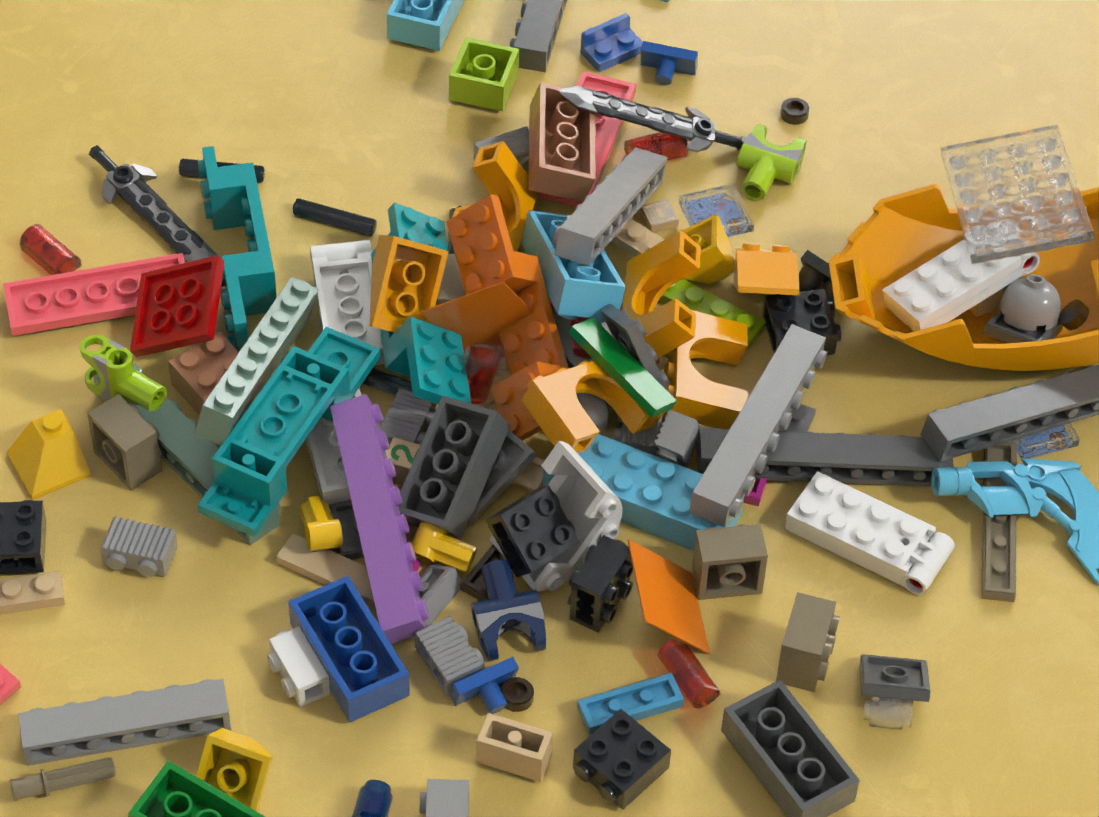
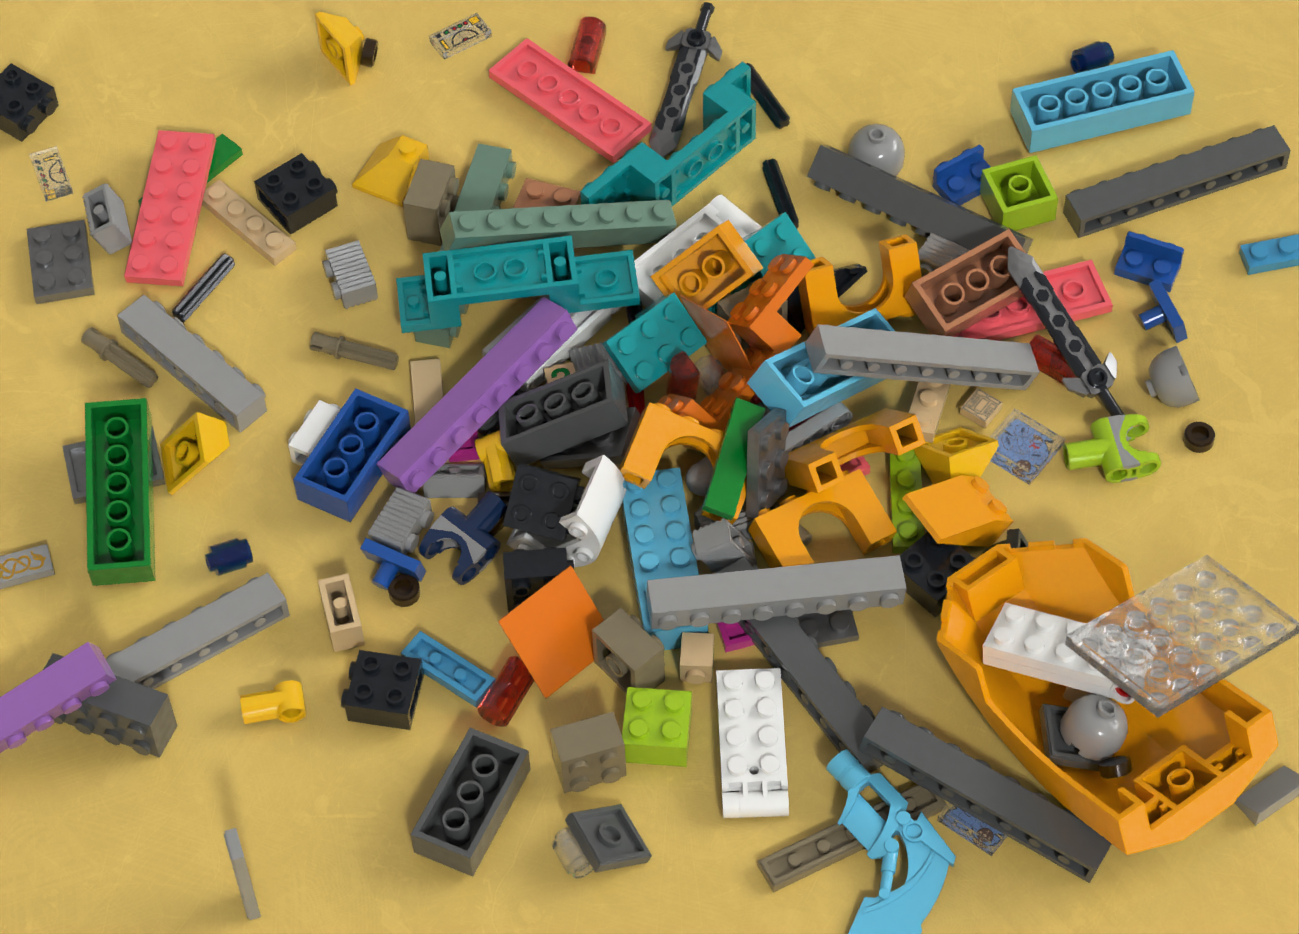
camera: 60 degrees right, 5 degrees up
(41, 668) = (203, 287): none -> axle
(118, 376) = (470, 154): lime connector -> none
(177, 306) = (579, 149): red plate -> none
(213, 599) = (341, 348): none -> dark tan axle
(320, 527) = (449, 371): yellow piece -> none
(352, 135) = (878, 147): none -> light grey cylinder
(426, 142) = (903, 200): none -> dark grey brick
(430, 100) = (960, 177): none -> blue bracket
(739, 89) = (1171, 379): none -> light grey cylinder
(759, 511) = (697, 657): none -> tan brick
(809, 572) = (657, 726): none -> lime brick

